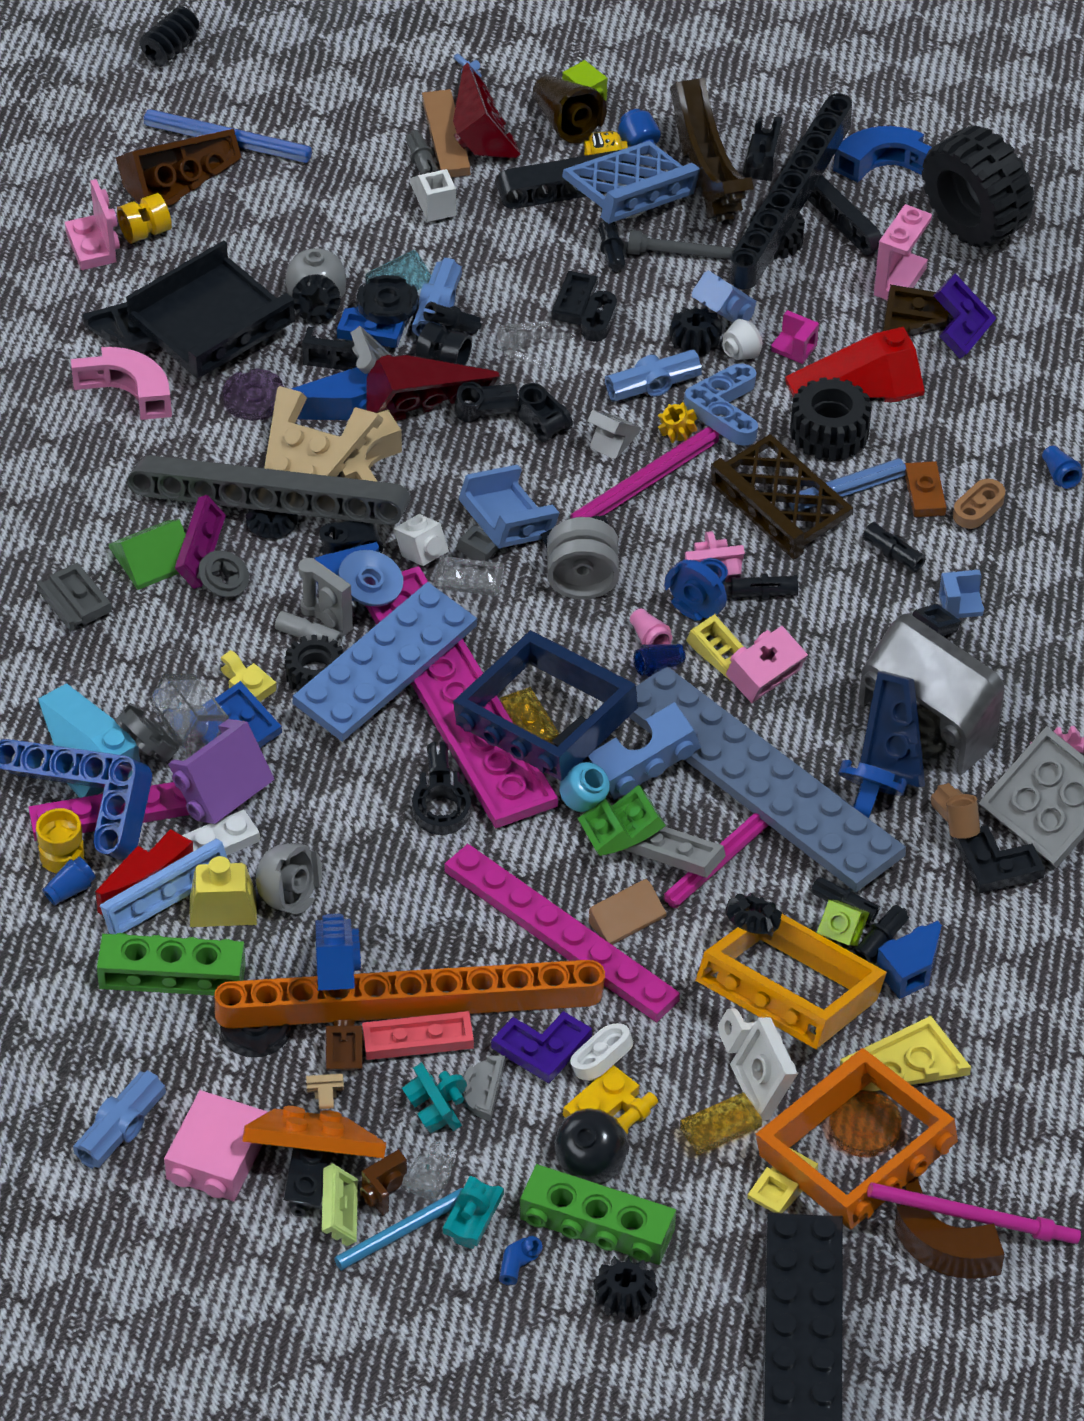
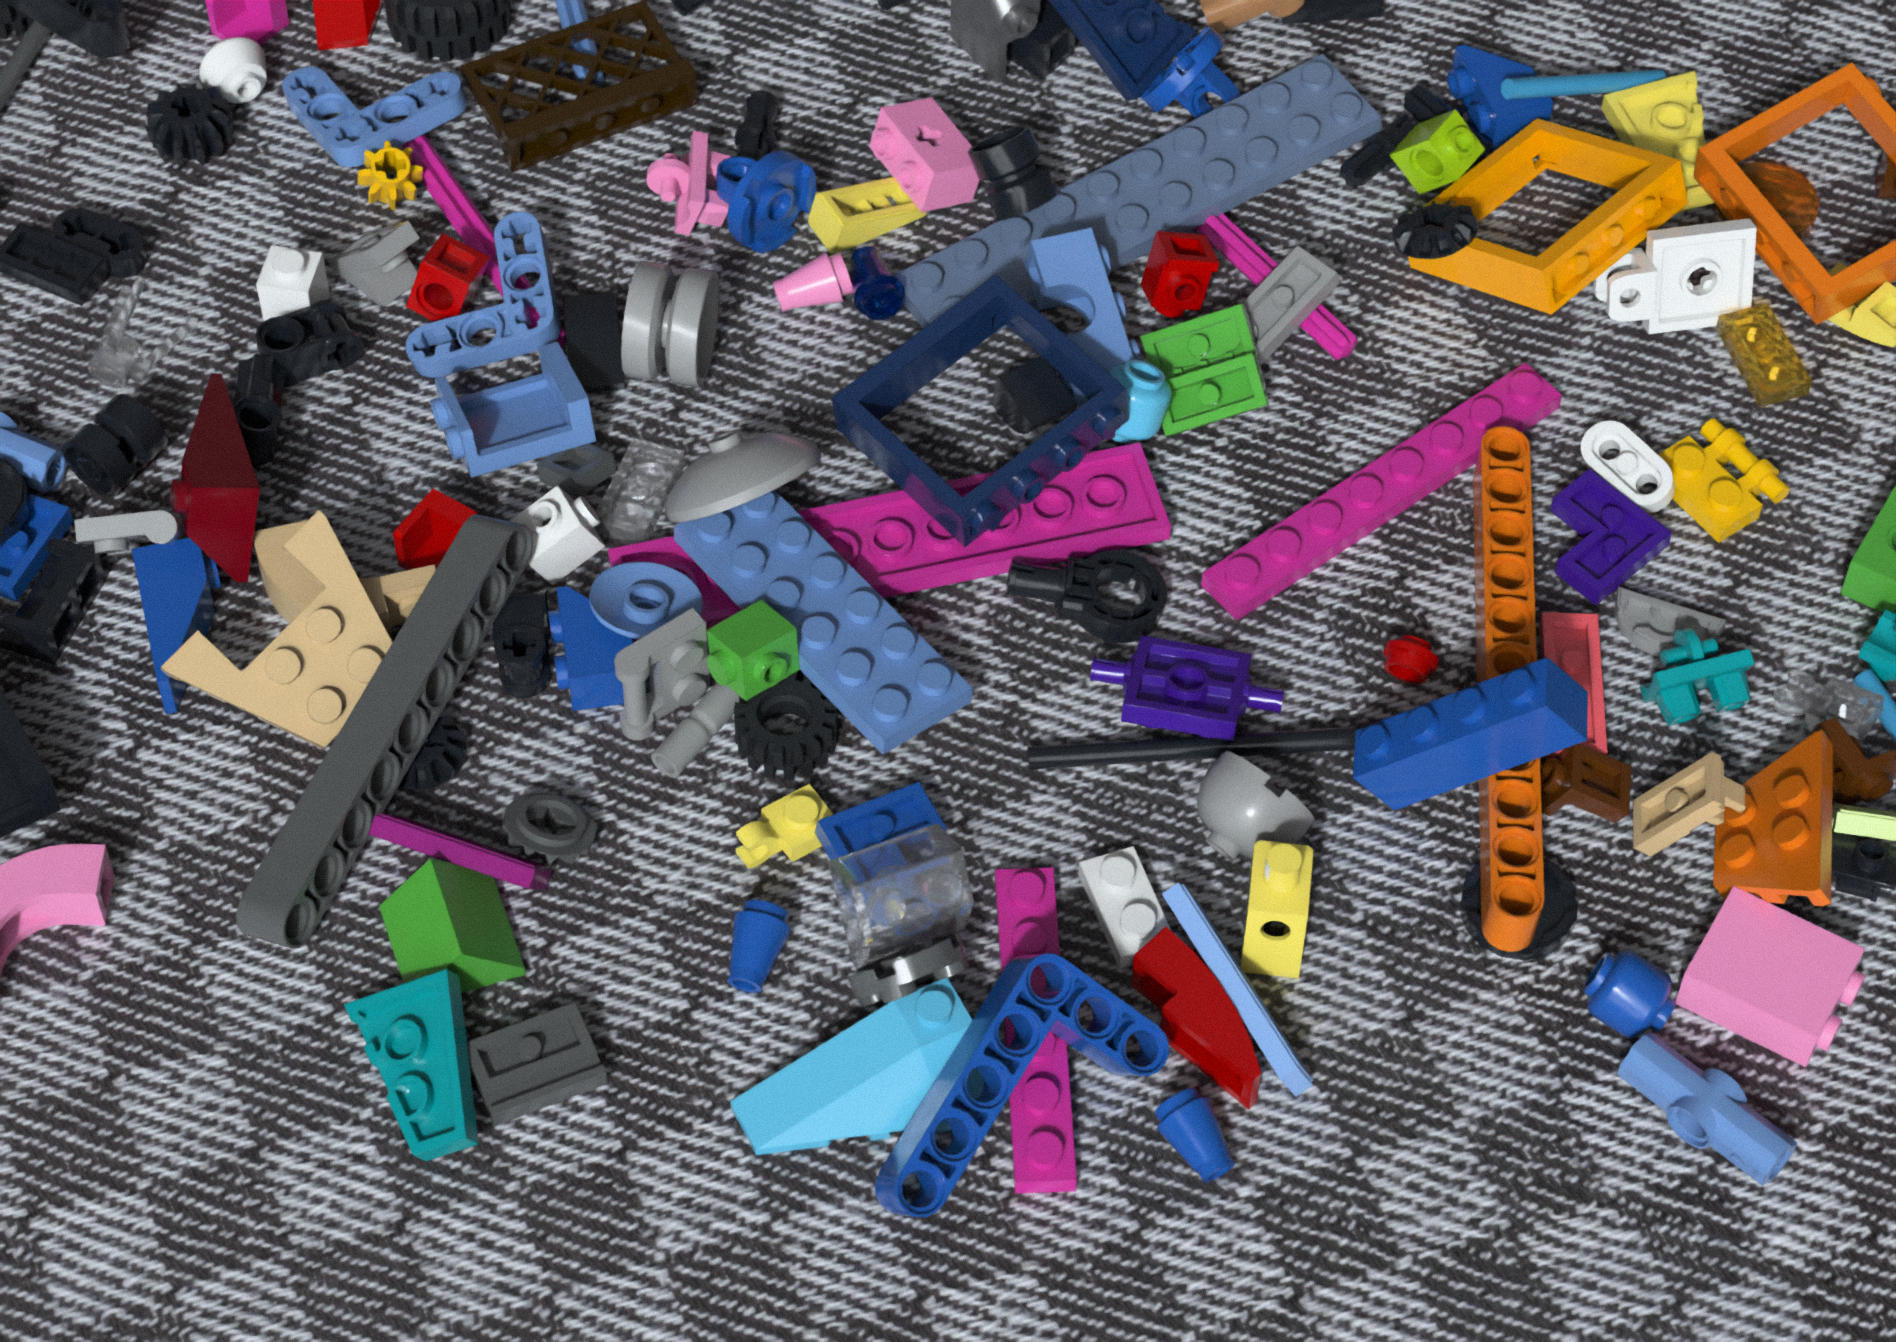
camera: 80 degrees left, 5 degrees up
(59, 838) = (1118, 1130): yellow wheel -> none
(74, 547) = (422, 1054): none -> teal wing
(150, 674) = (756, 944): none -> blue cone
(168, 963) = (1391, 1081): bright green brick -> none
(191, 1072) = (1629, 993): none -> blue head
(222, 773) = (999, 827): medium lavender panel -> none
(251, 394) = (110, 741): clear purple tile -> none
(341, 625) = (752, 650): none -> bright green brick
(342, 866) = (1192, 748): none -> black bar
(374, 840) = (1186, 687): none -> dark purple plate
(421, 489) = (429, 530): none -> red panel
(421, 950) = (1410, 659): none -> red plate
(452, 318) = (53, 422): black axle -> none
(472, 603) = (738, 472): none -> light grey dish
(529, 714) = (968, 451): clear yellow plate -> none
(579, 395) = (291, 281): none -> white brick
(586, 499) = (508, 319): none -> medium blue beam
(591, 1145) = (1806, 500): black cylinder -> none
(595, 459) = (447, 279): none -> red brick
(626, 912) = (1363, 403): medium nougat slope -> none
(653, 375) = (268, 187): medium blue piece -> none
(690, 801) = (1178, 272): none -> red brick
(723, 298) = (157, 61): medium blue brick -> none
(747, 701) = (1015, 179): none -> black wheel
(927, 996) = (1577, 84): none -> dark azure bar

